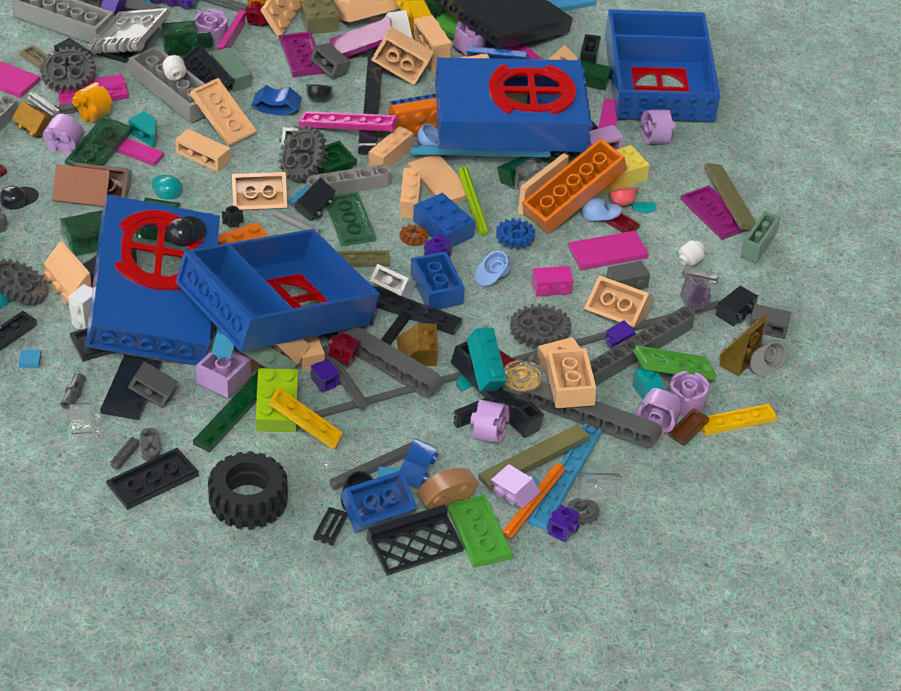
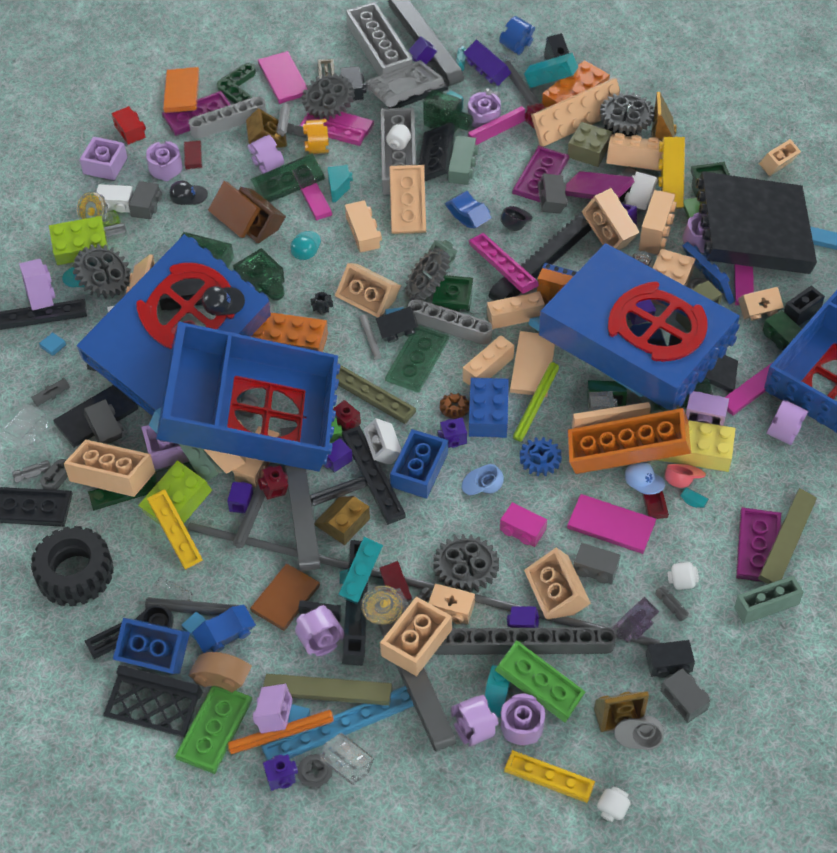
camera: 45 degrees right, 10 degrees up
(201, 407) = (109, 468): none -> light nougat brick
(433, 420) = (282, 596): none -> dark orange tile
(688, 427) = (492, 753): reddish brown tile -> none
(796, 407) = (613, 804): none -> white head

